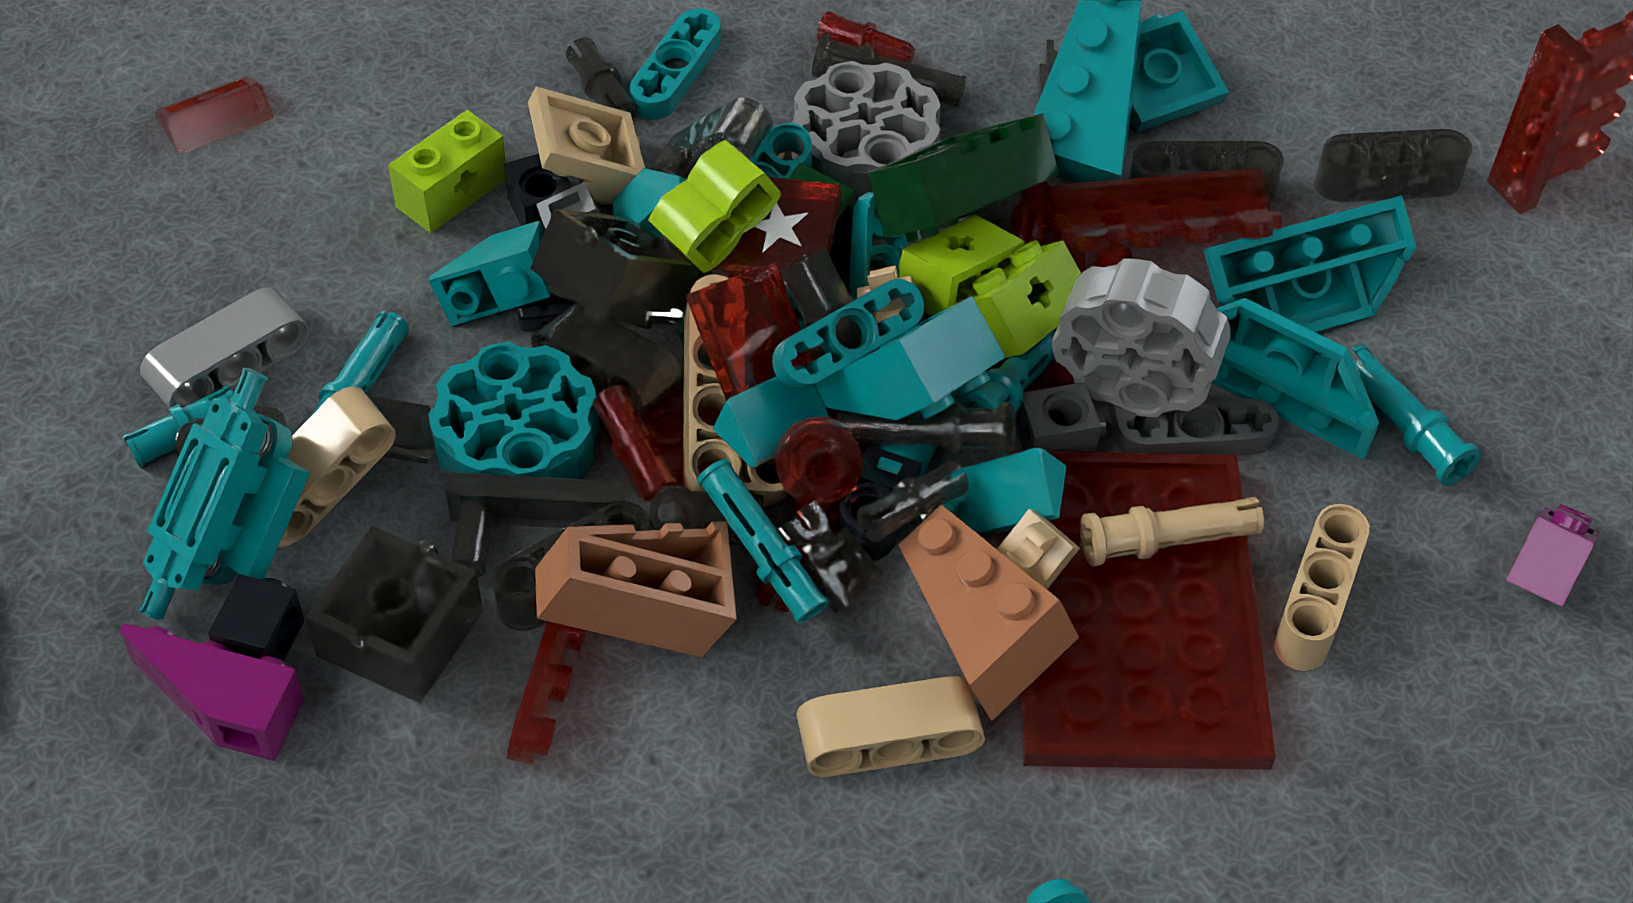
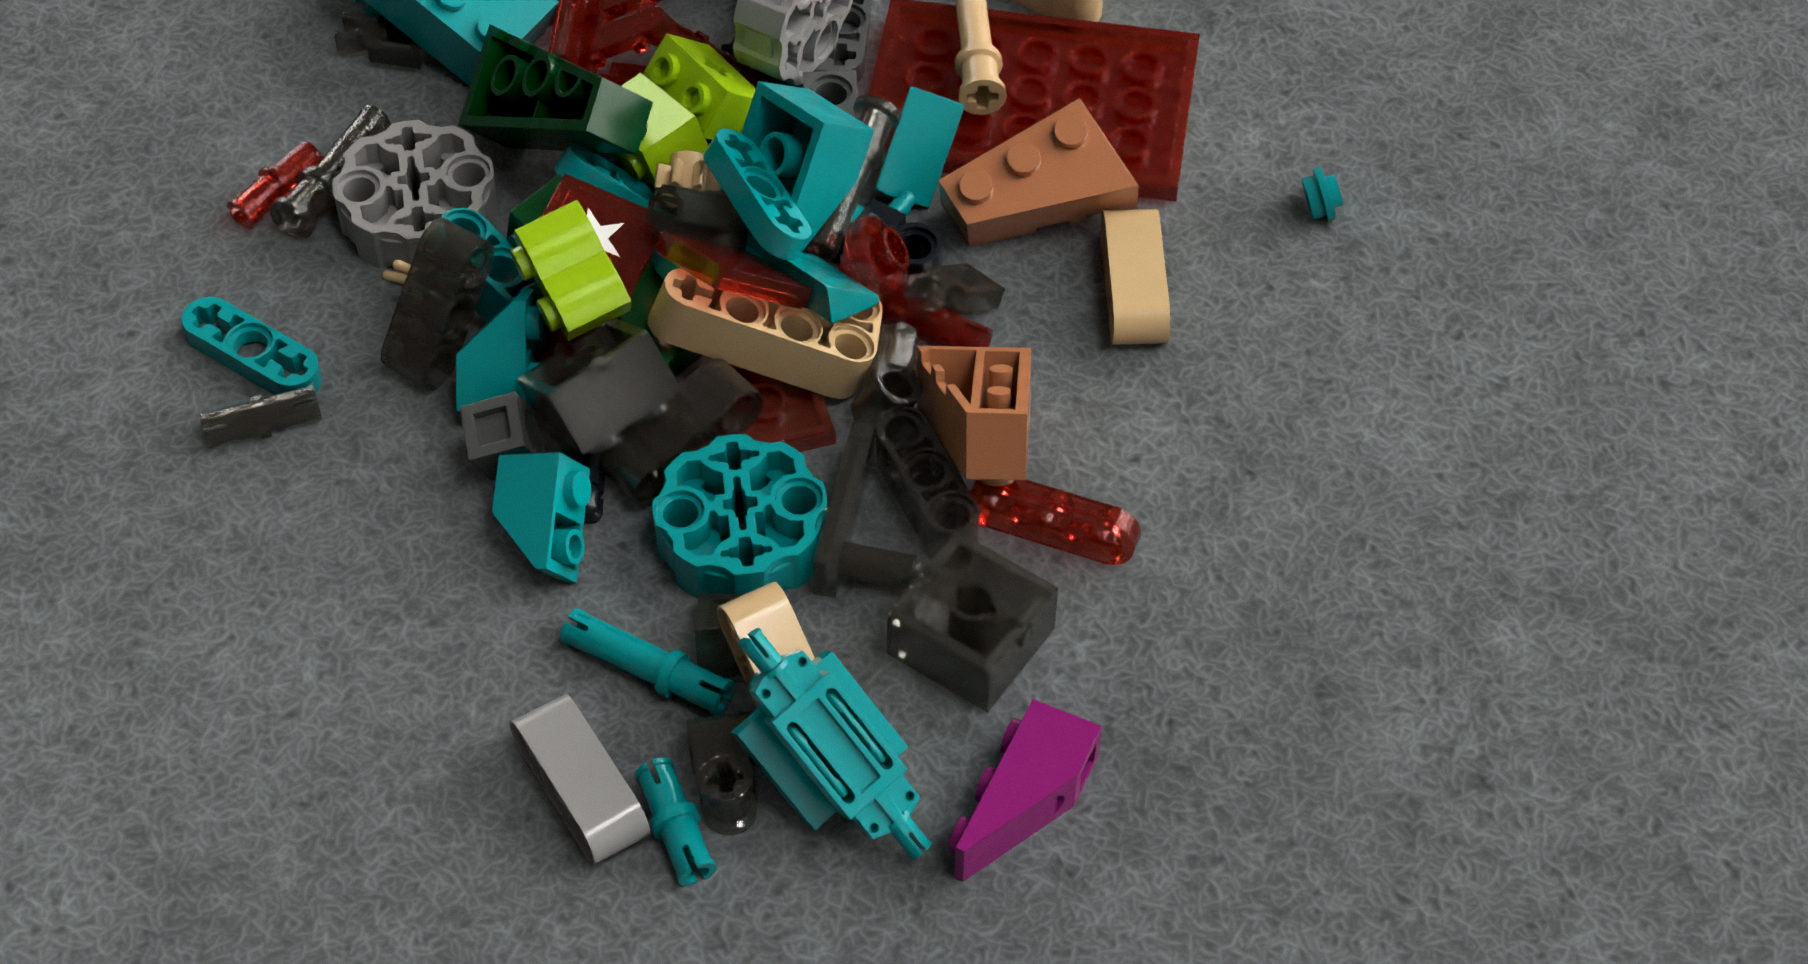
camera: 80 degrees left, 0 degrees up
(214, 114) = (180, 799): clear red slope -> none
(259, 618) = (953, 747): black brick -> none
(448, 171) = (373, 552): lime brick -> none
(530, 184) = (430, 475): black brick -> none
(586, 142) = (390, 408): tan plate -> none
(633, 442) = (801, 412): clear red pin -> none
(776, 560) = (998, 308): teal pin -> none
(912, 501) = (927, 202): clear smoke pin -> none
(1038, 548) = (987, 127): tan tile -> none

